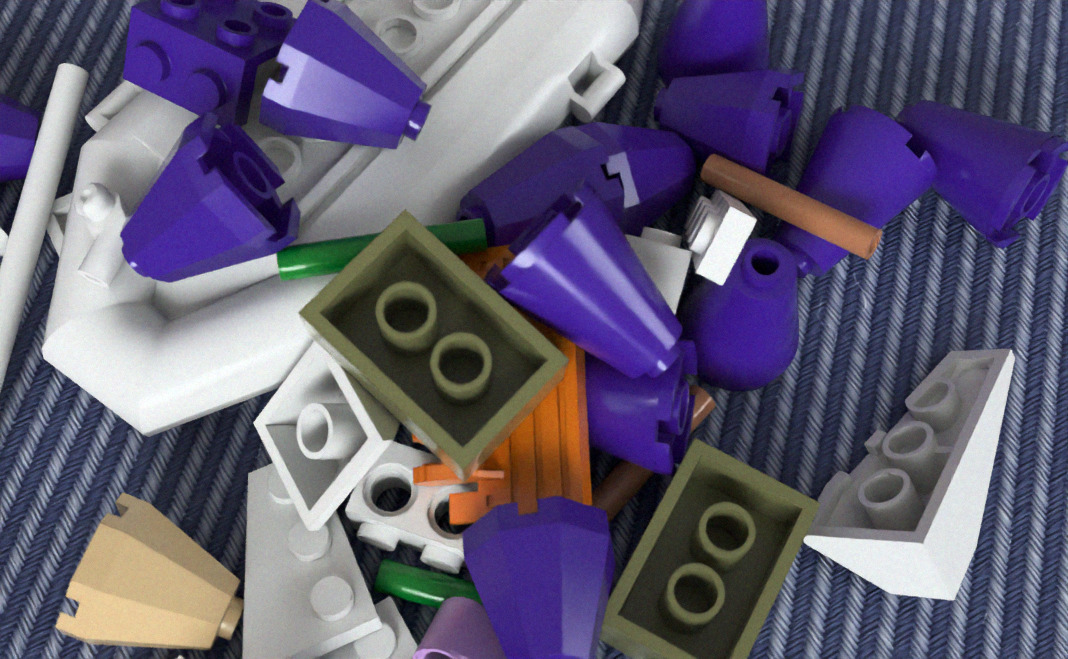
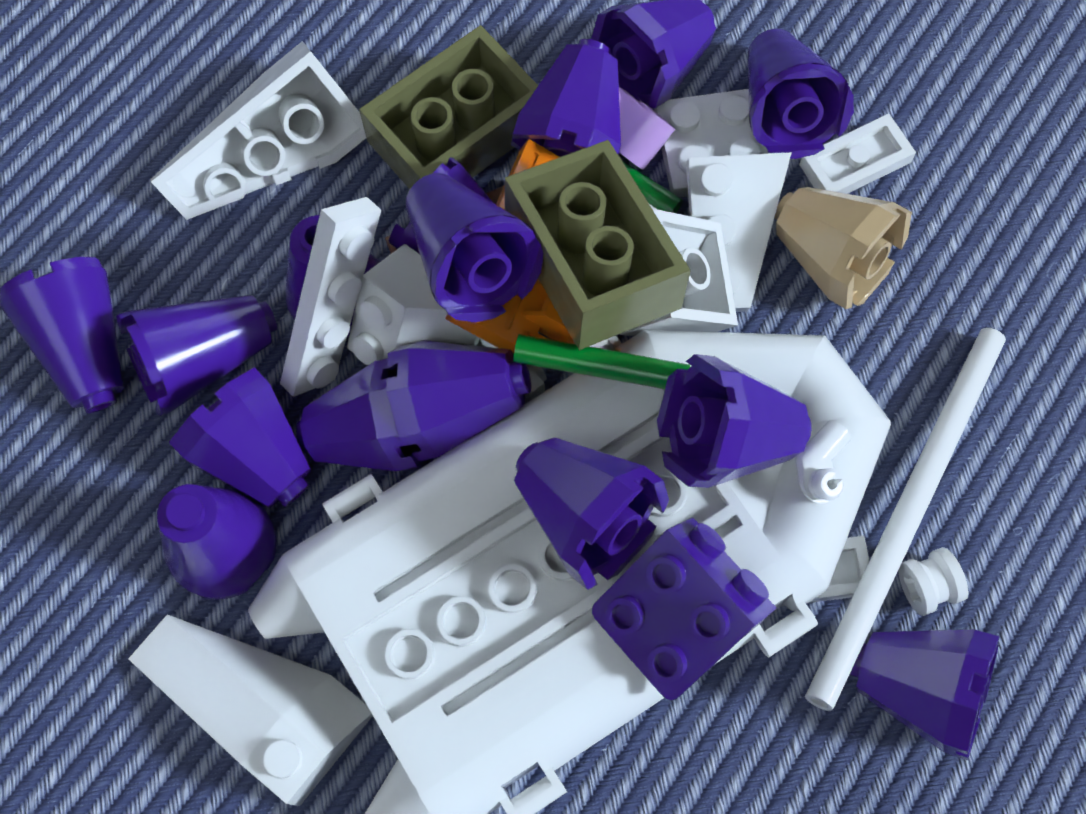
camera: 155 degrees left, 5 degrees up
(791, 206) = (252, 330): nougat piece -> none

